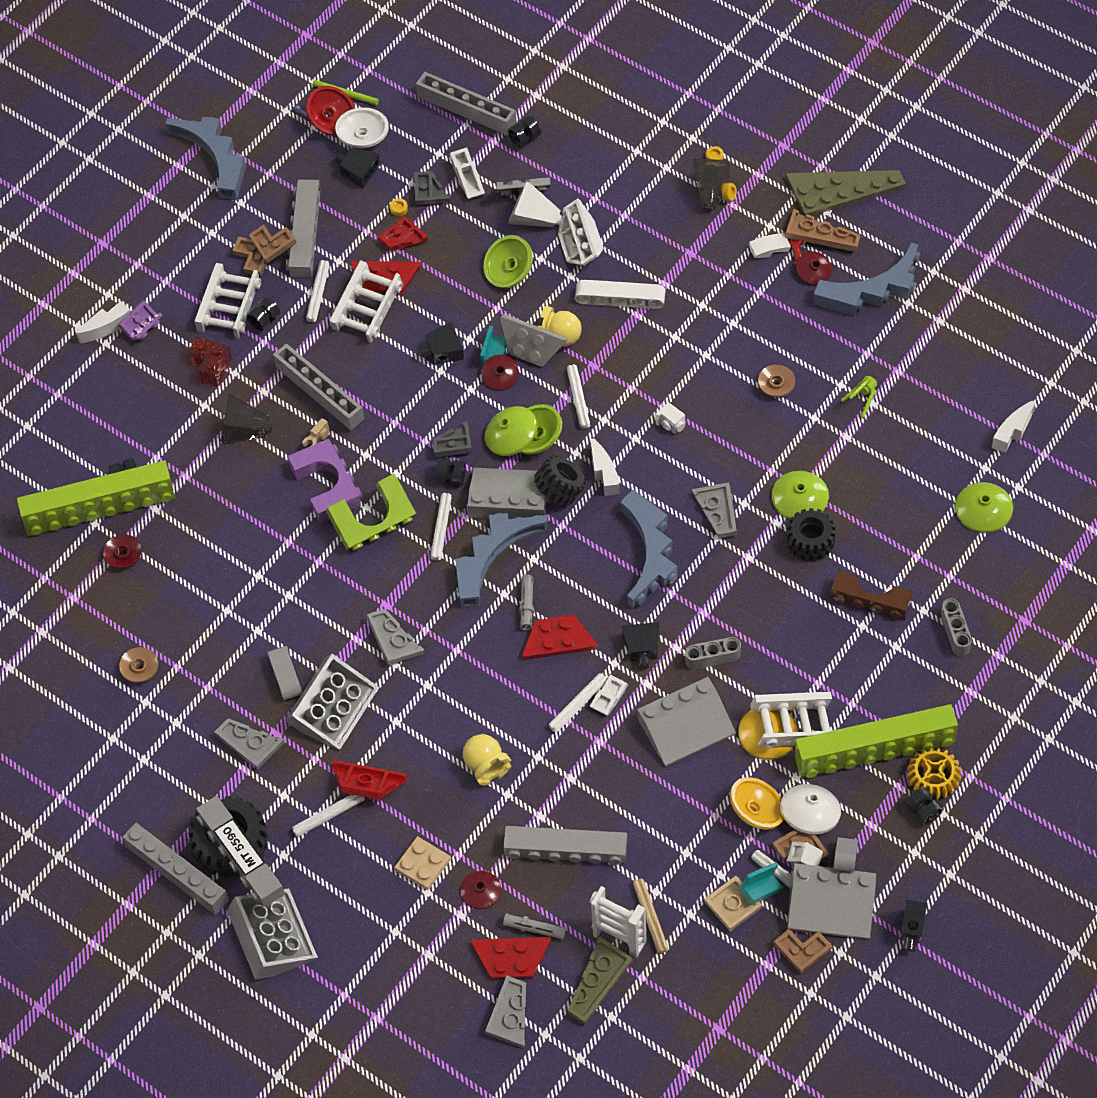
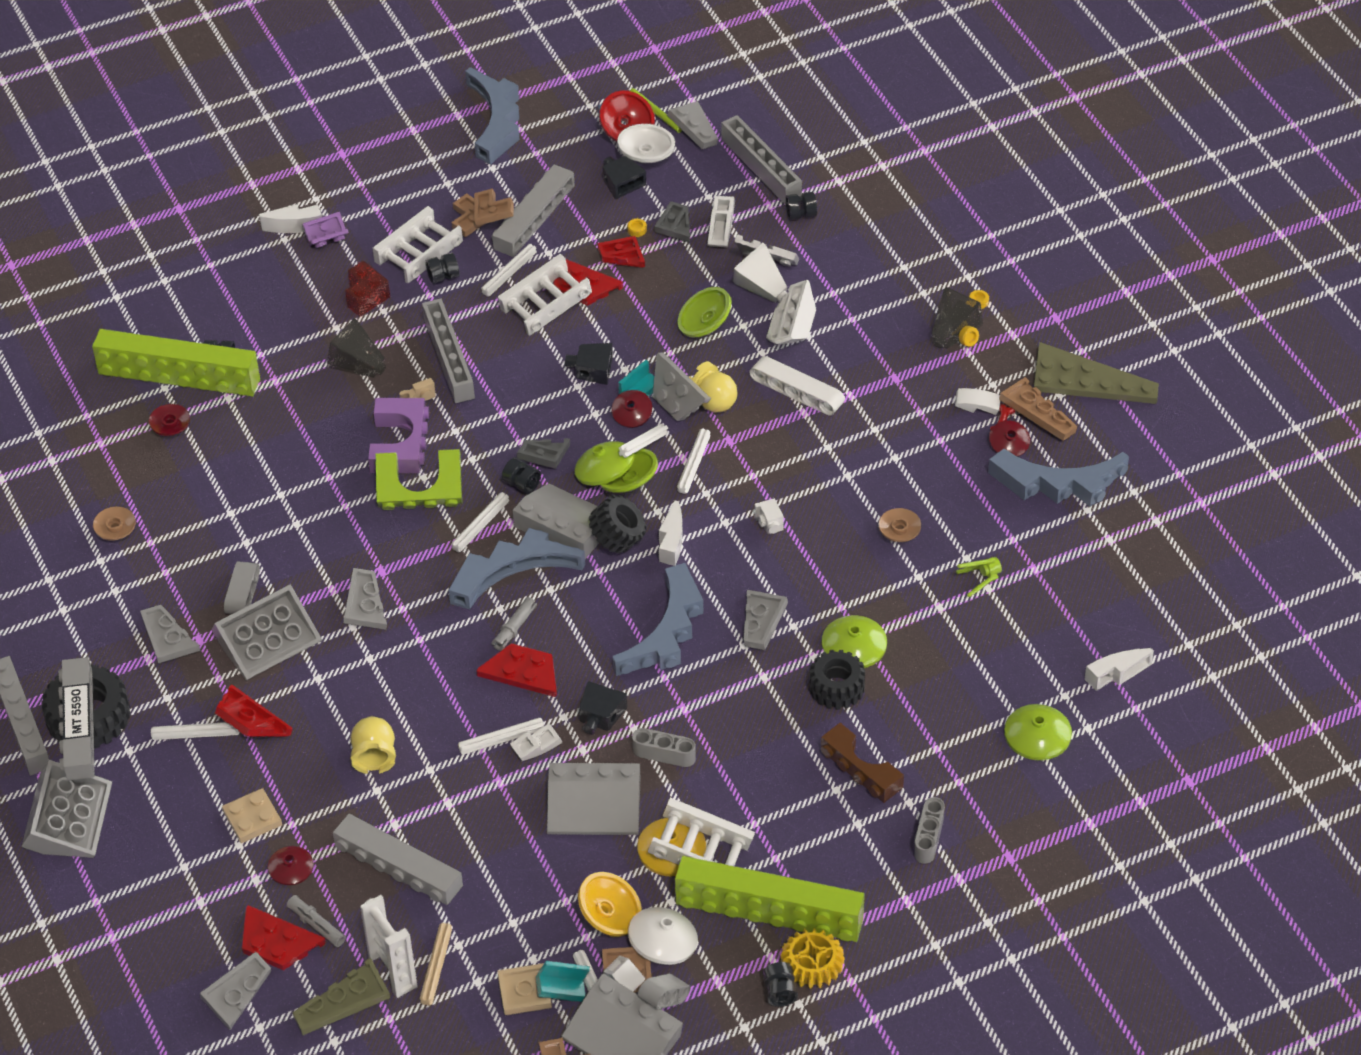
camera: 25 degrees right, 10 degrees down
(387, 92) = (694, 123): none -> light grey wing
(532, 397) = (643, 440): none -> white axle

